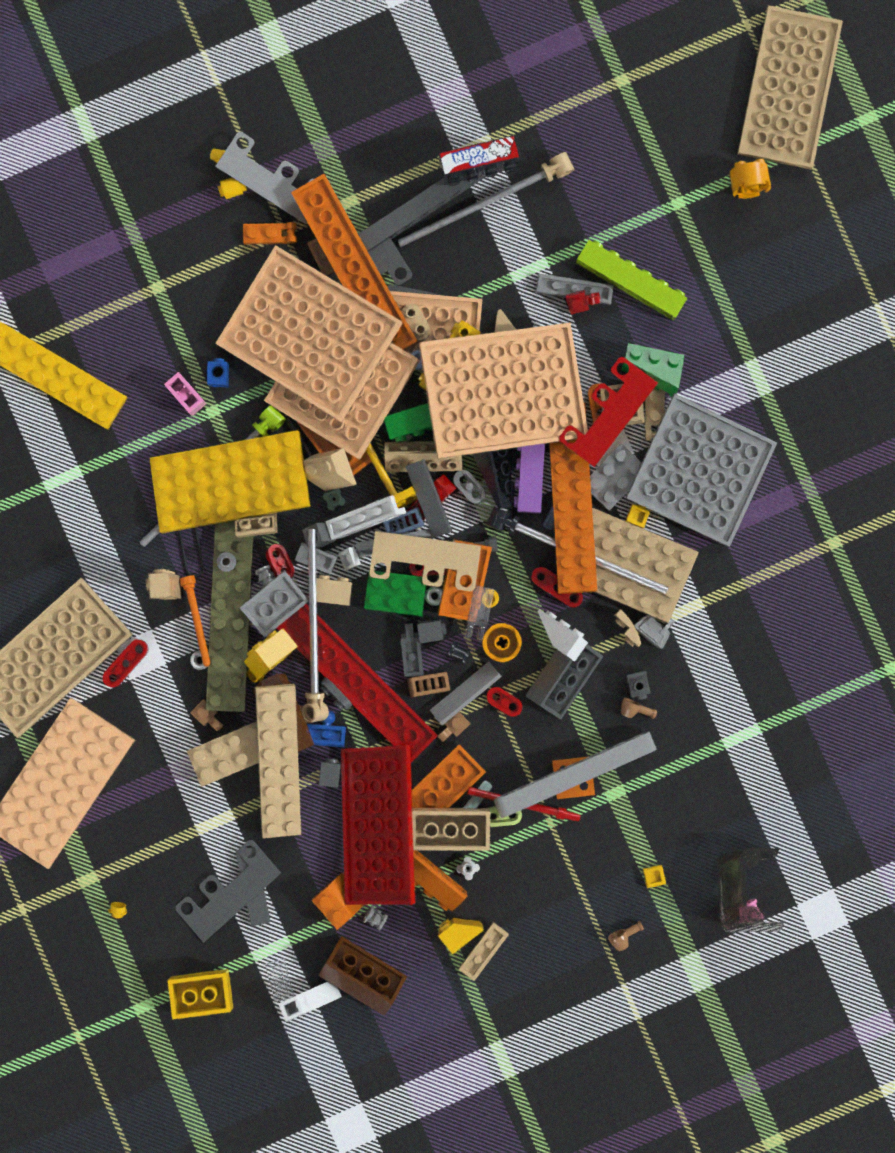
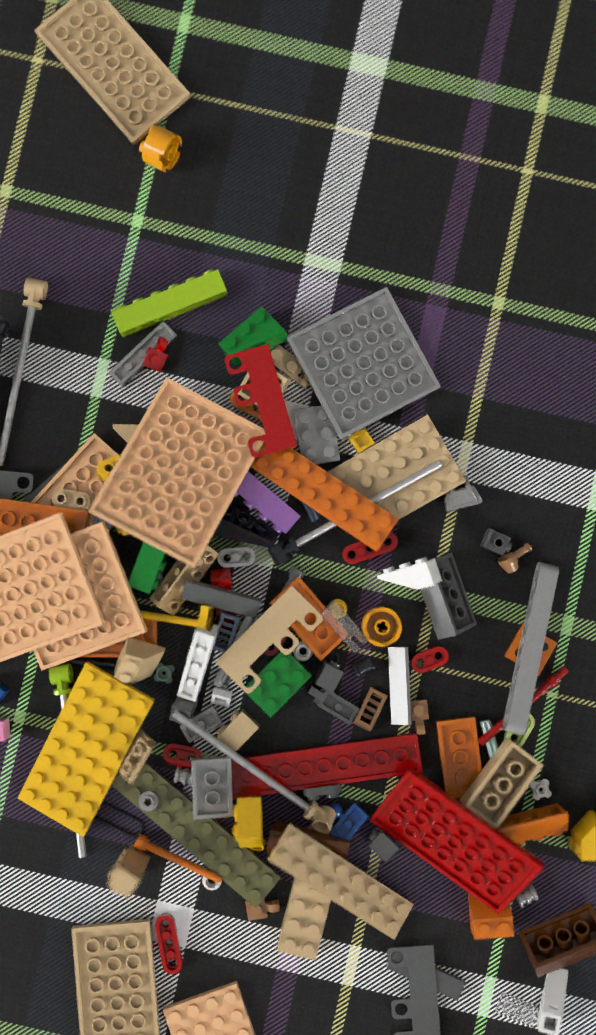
camera: 60 degrees left, 0 degrees up
(631, 633) = (450, 516): tan slope -> none

